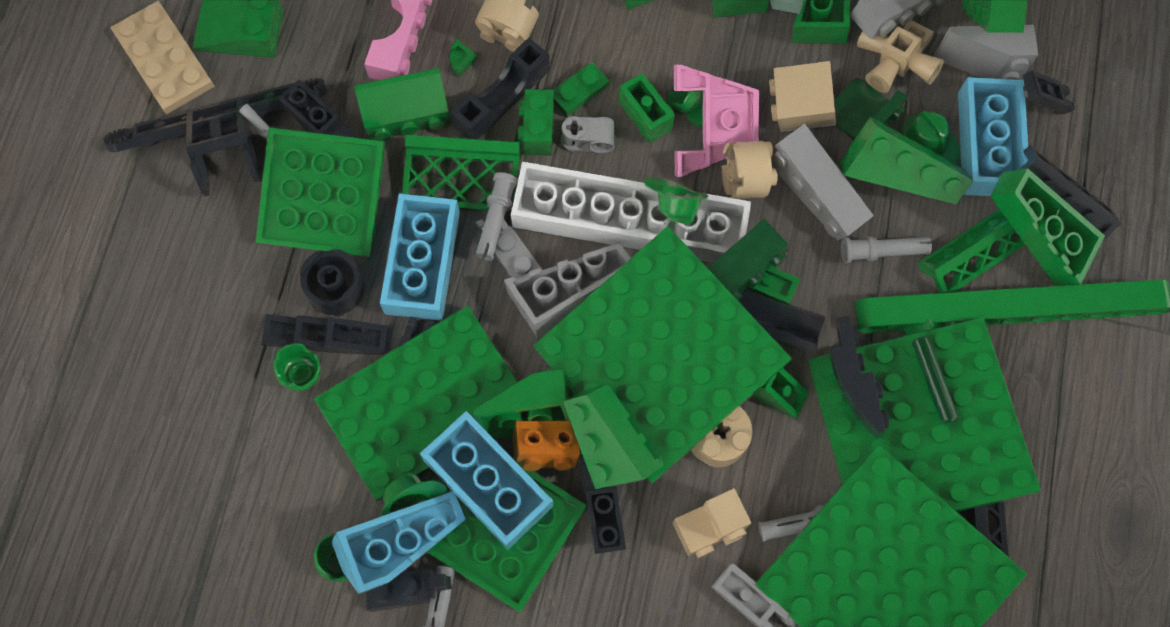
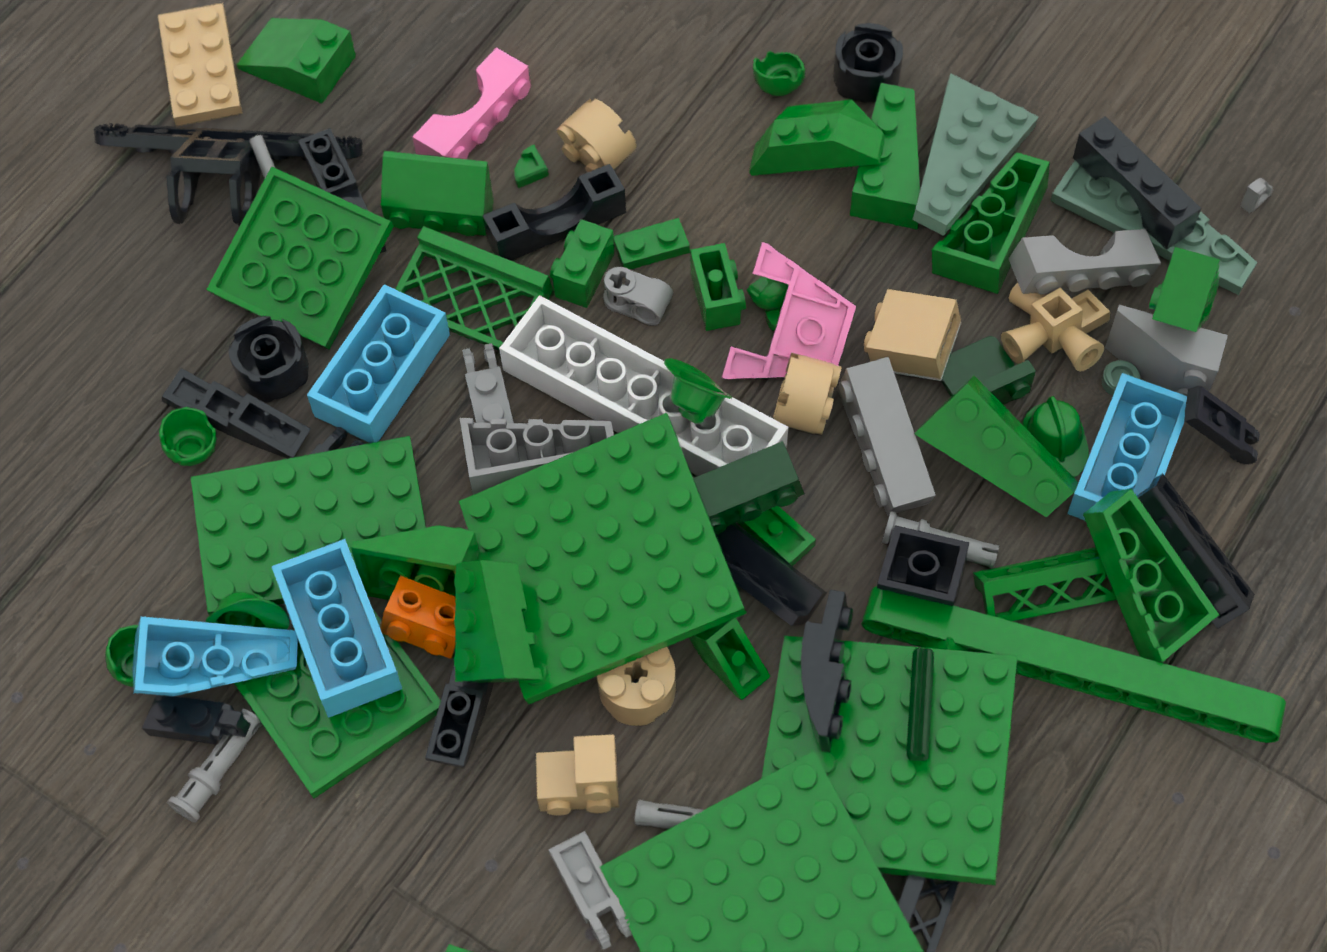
camera: 25 degrees right, 10 degrees down
(499, 203) = (492, 337): light grey pin -> none
(889, 274) = (924, 565): none -> black slope
(955, 78) = (1113, 373): none -> sand green tile

